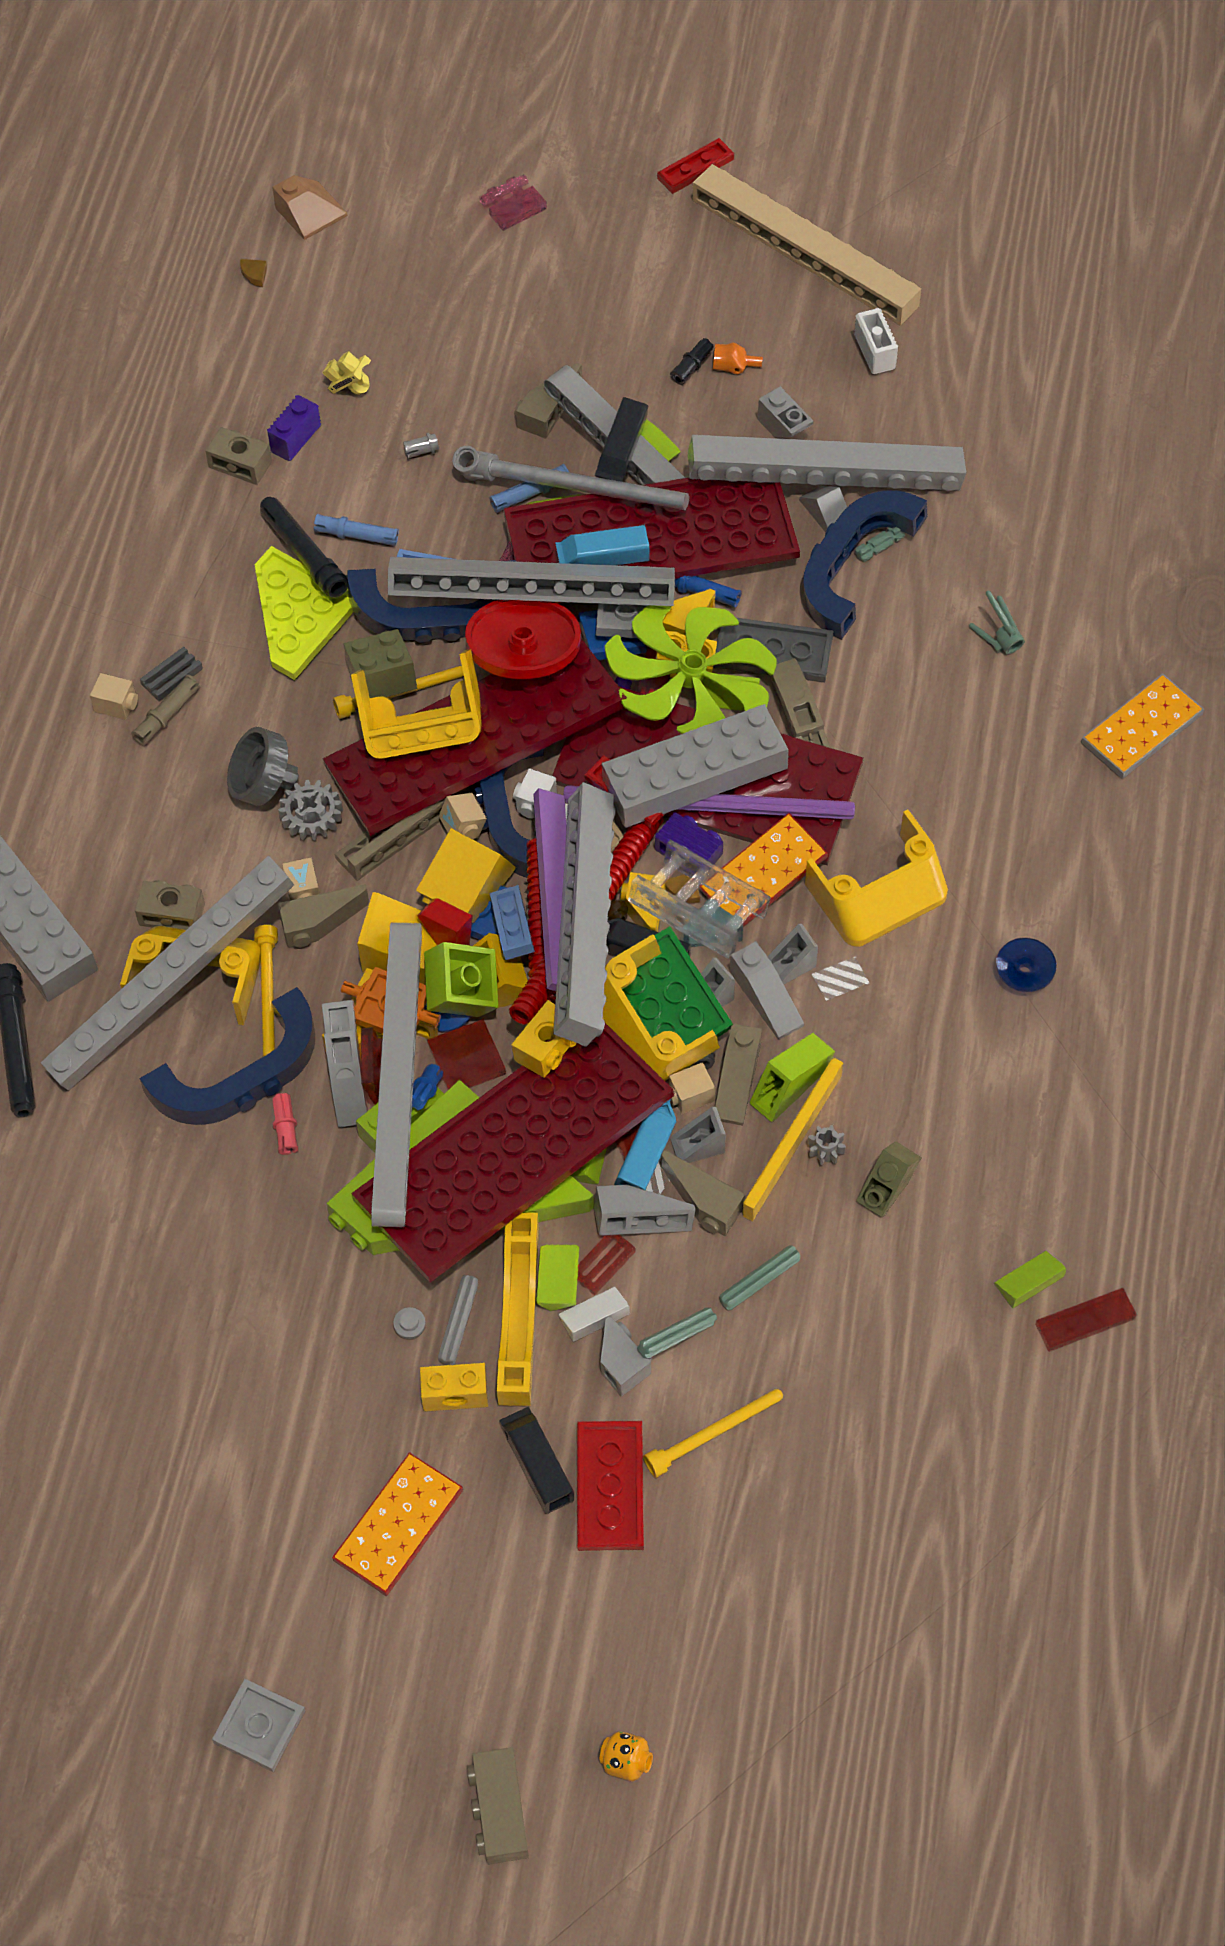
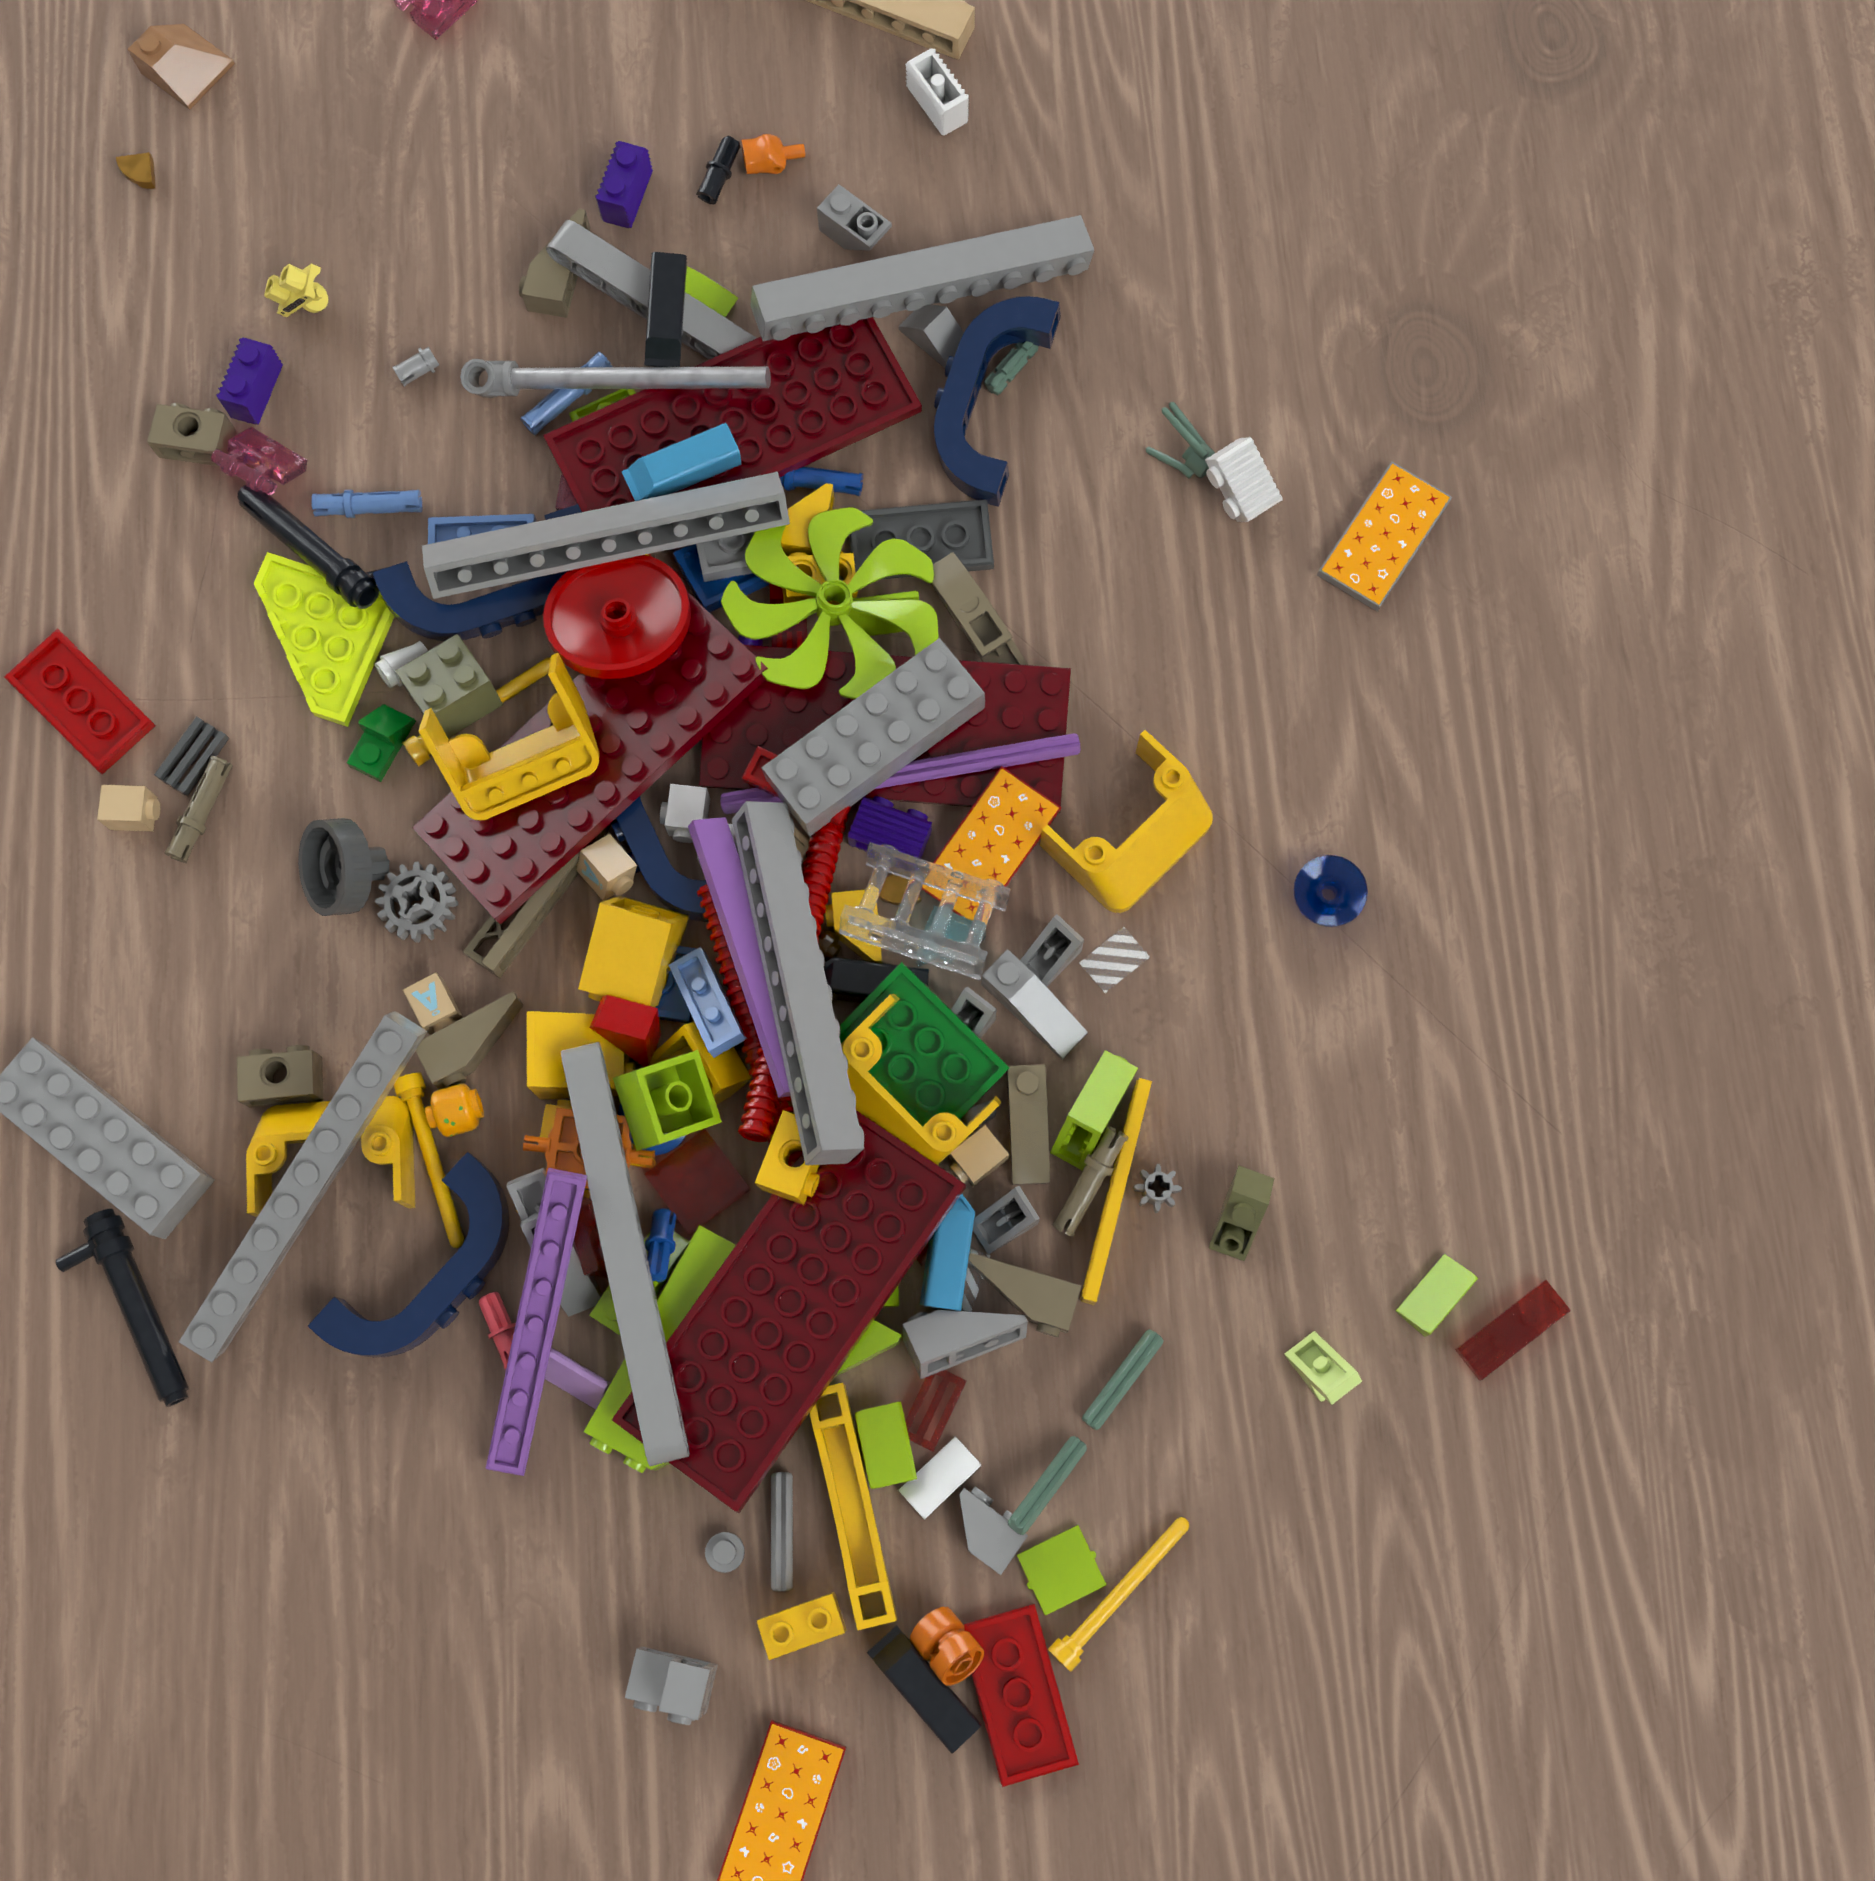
camera: 15 degrees left, 15 degrees up
(99, 618) = (79, 701): none -> red tile
(284, 483) = (266, 456): none -> clear pink plate
(295, 959) = (454, 1110): none -> light orange head
(314, 1112) = (536, 1321): none -> medium lavender tile
(316, 695) = (380, 742): none -> green slope
(326, 1165) = (575, 1379): none -> lavender slope
(336, 643) = (395, 660): none -> white cone
(342, 1400) = (672, 1682): none -> light grey brick
(564, 1426) = (950, 1649): none -> orange wheel
(616, 355) = (624, 184): none -> dark purple brick
(671, 1405) = (1061, 1570): none -> lime piece
(774, 1123) = (1098, 1166): none -> dark tan pin
(922, 1307) = (1322, 1368): none -> yellowish green slope
(1037, 657) = (1242, 480): none -> white brick

